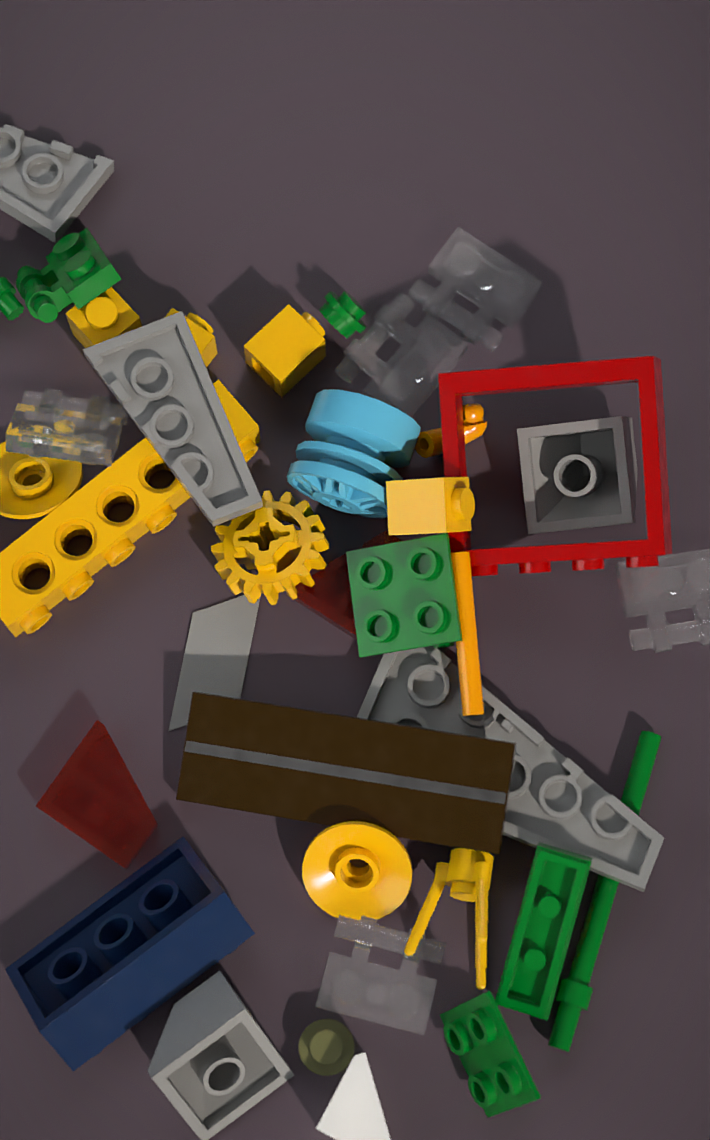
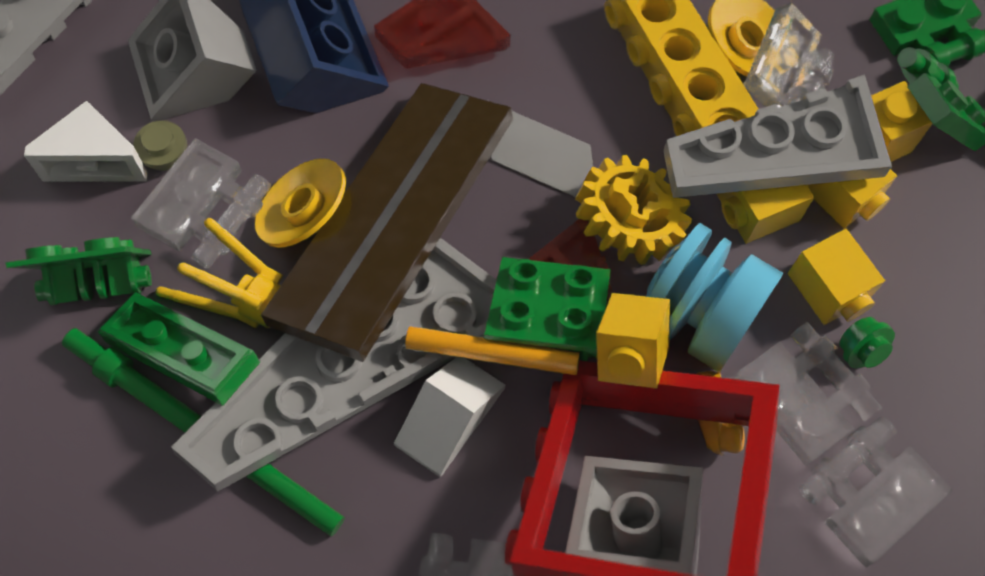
camera: 105 degrees right, 10 degrees down
(524, 666) = (447, 413): none -> white slope

